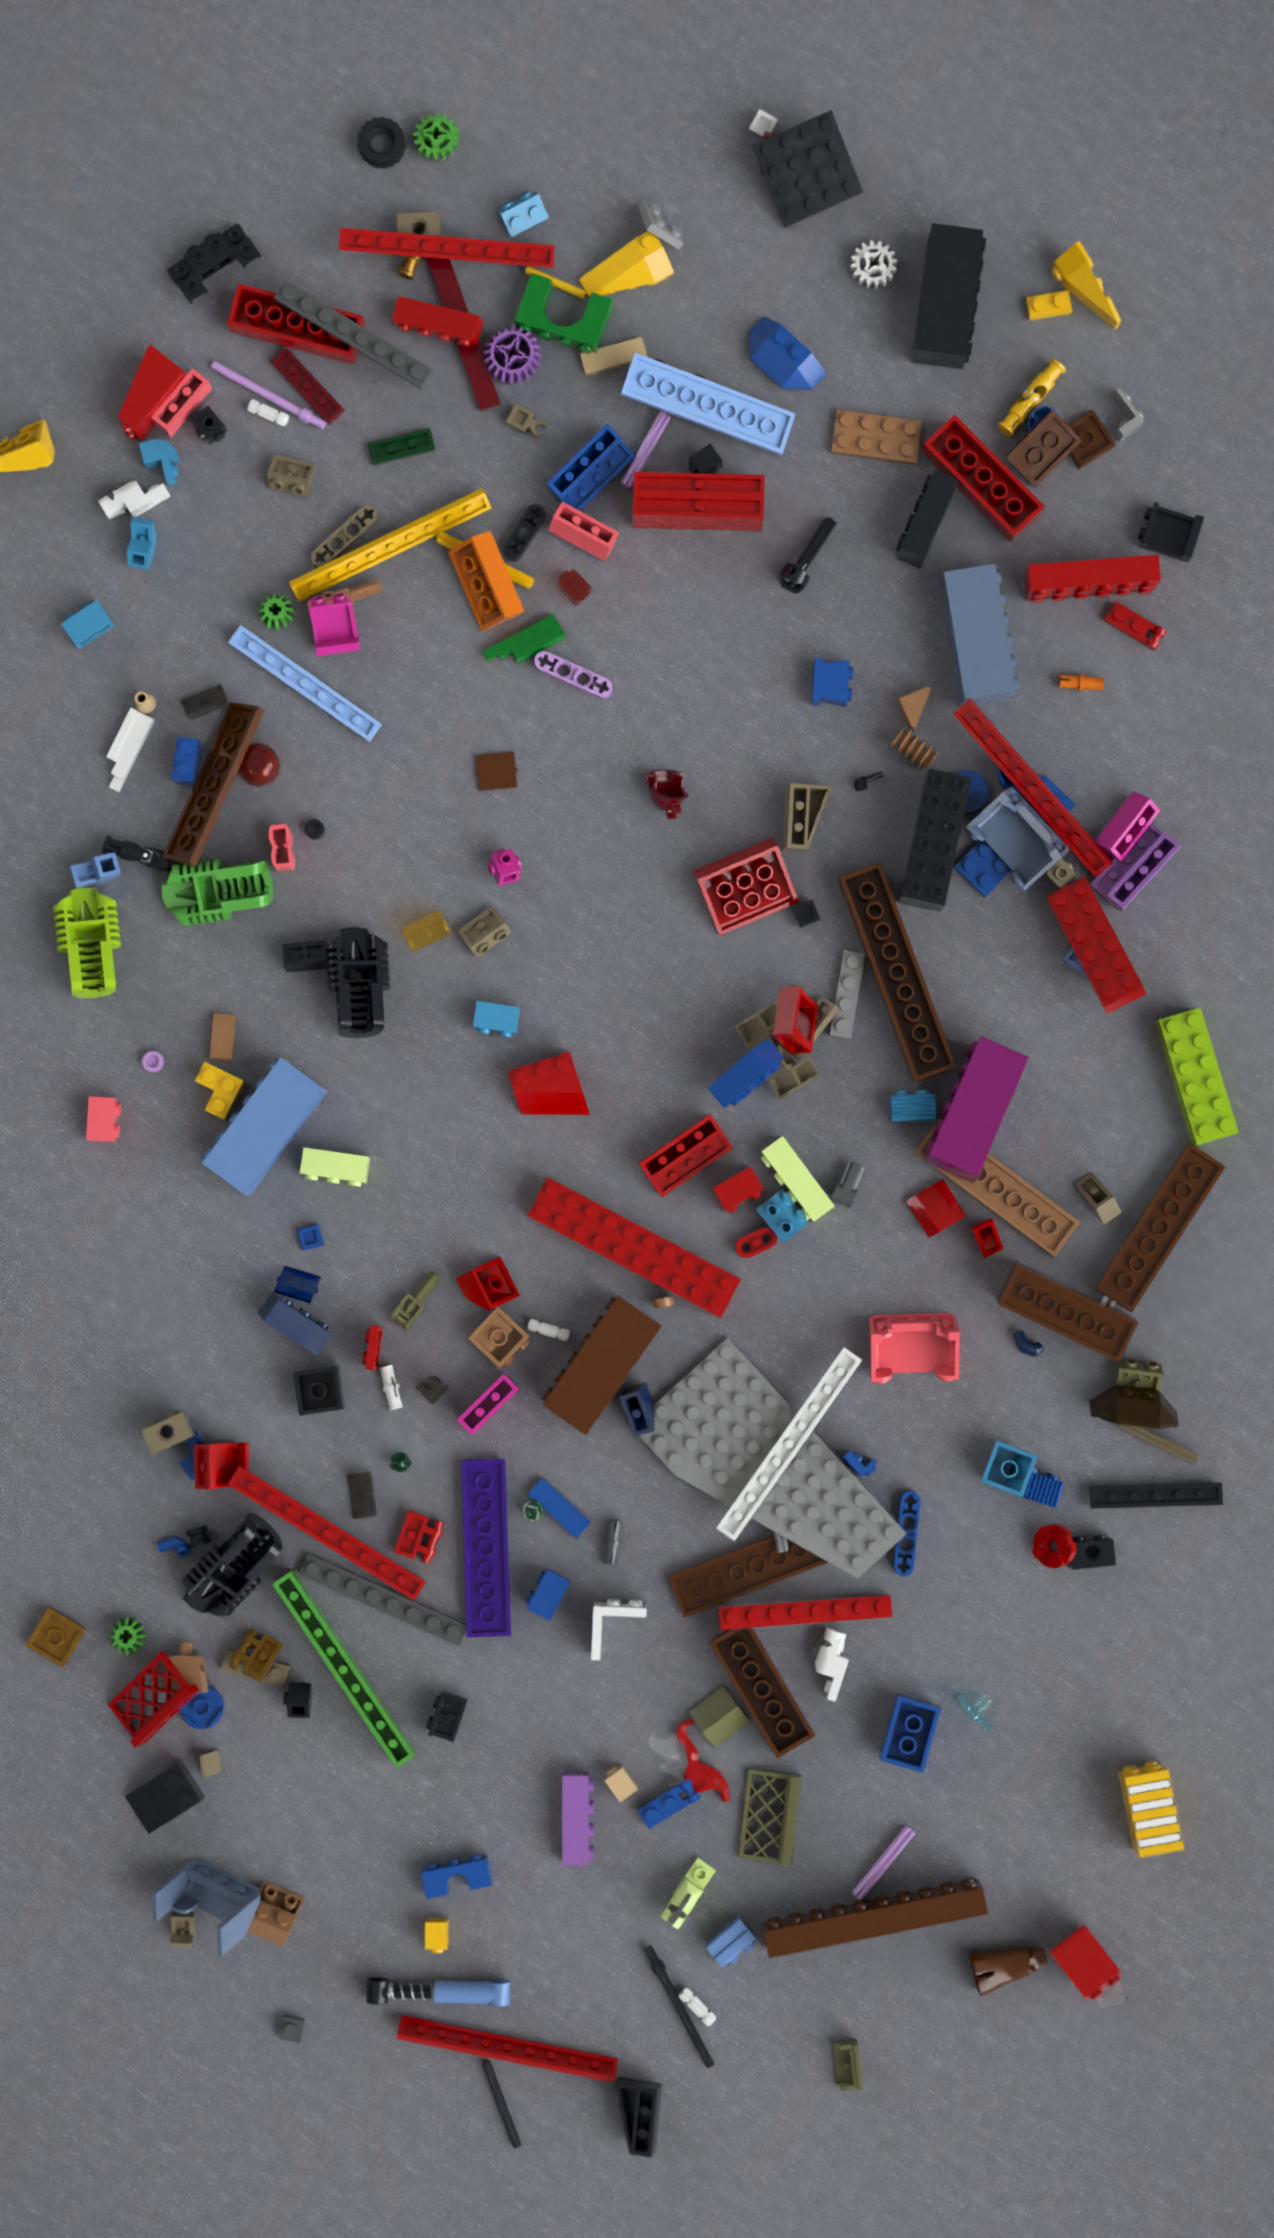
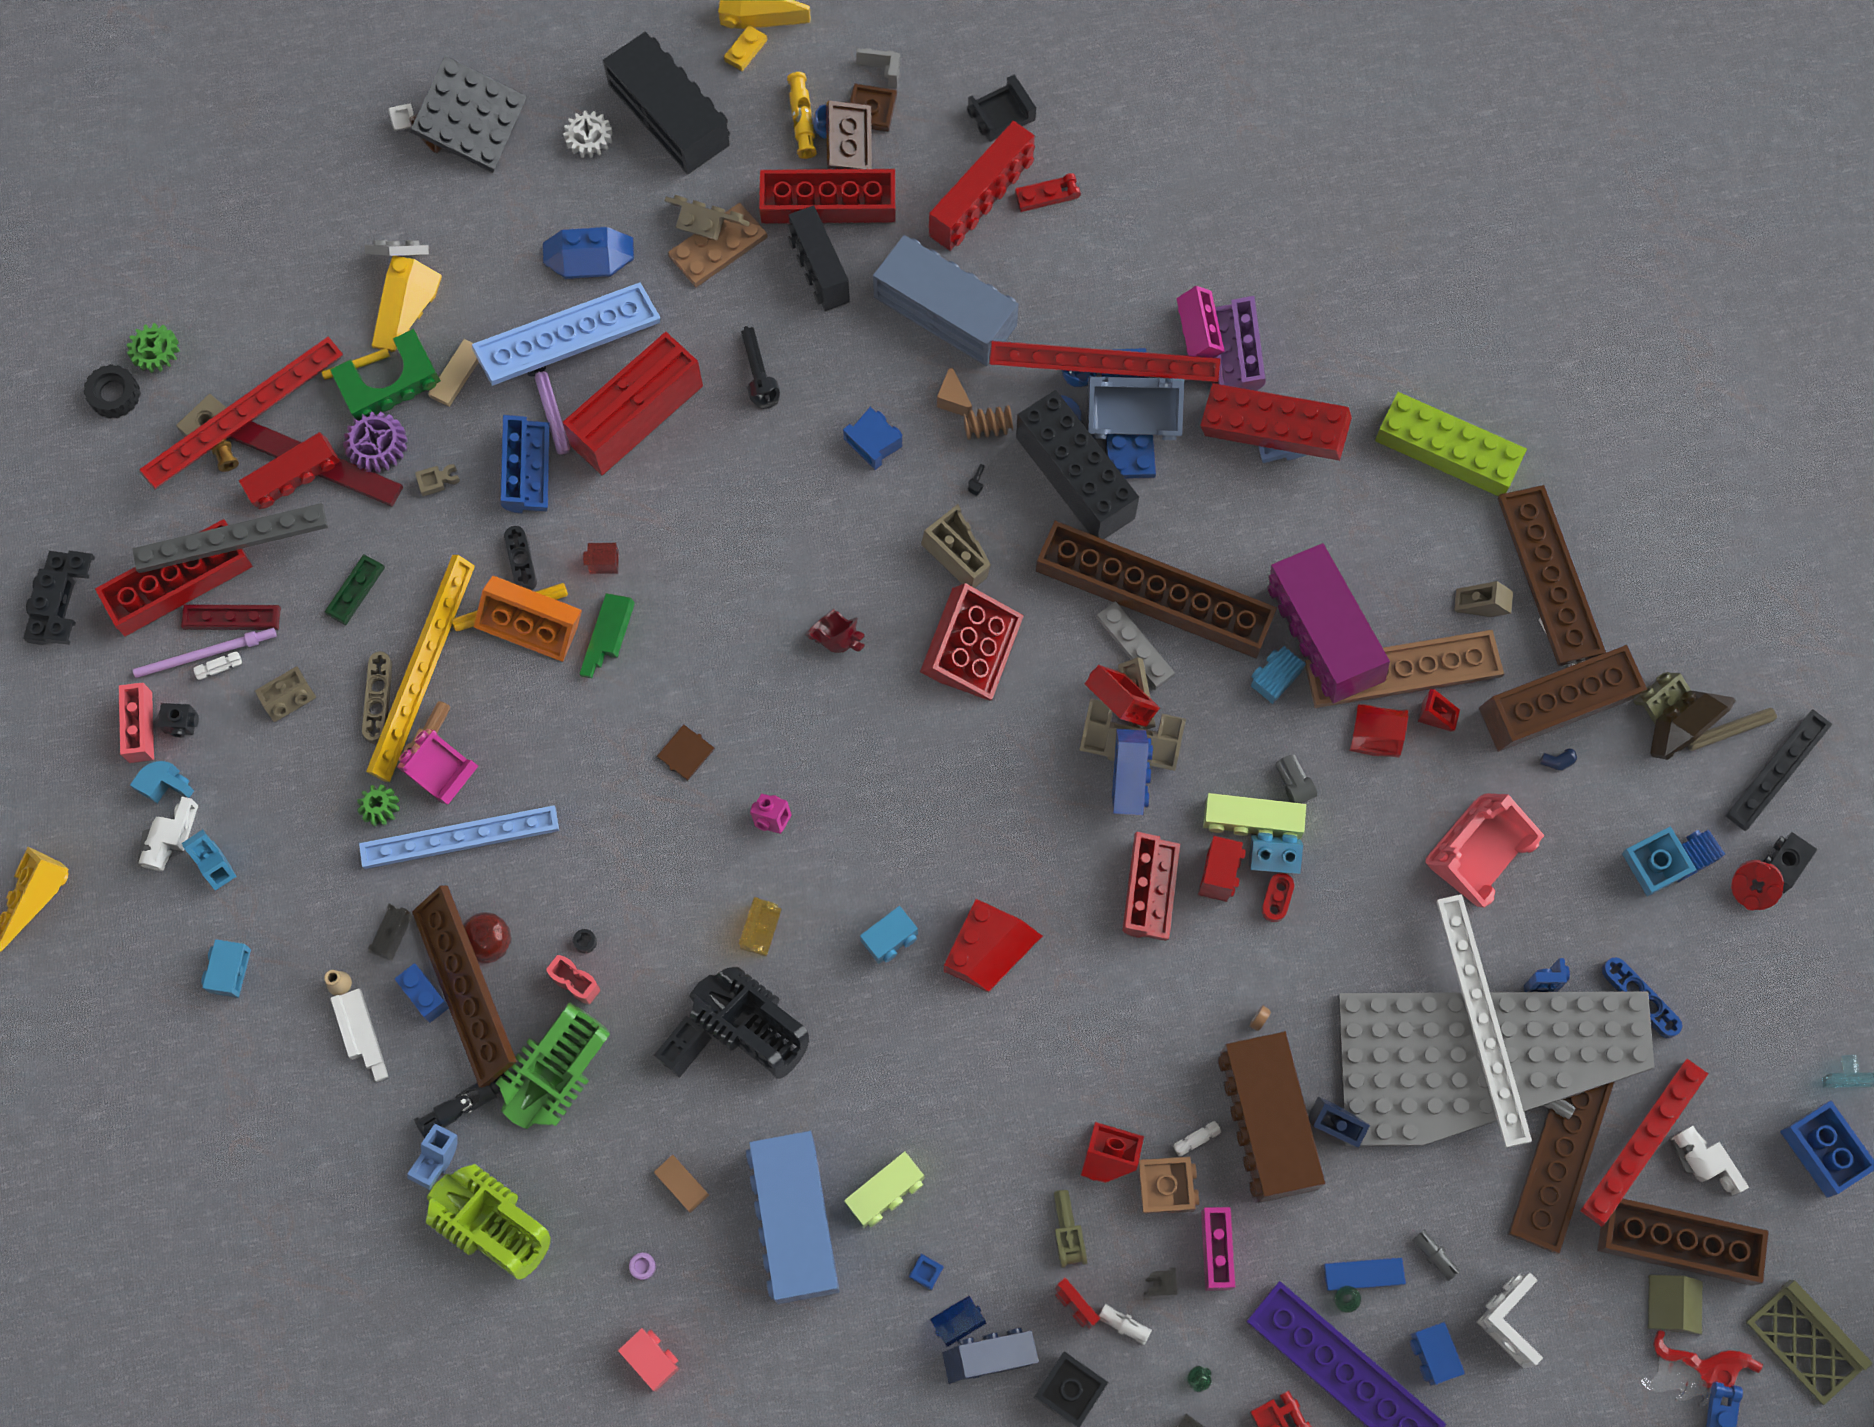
camera: 50 degrees left, 15 degrees down
(150, 388) = (98, 733): red slope -> none
(226, 1090) = (724, 1221): yellow brick -> none
(484, 931) = (807, 880): dark tan bracket -> none
(522, 213) = (279, 338): bracket -> none
(575, 671) = (668, 619): lavender beam -> none
(583, 531) = (566, 510): coral brick -> none
(634, 1247) = (1191, 1000): red brick -> none
(705, 461) = (605, 371): black brick -> none
(806, 913) = (1039, 617): black plate -> none
(880, 409) = (701, 220): none -> dark tan bracket
(1061, 873) = (1194, 400): dark tan bracket -> none
(1081, 682) = (1053, 264): orange pin -> none

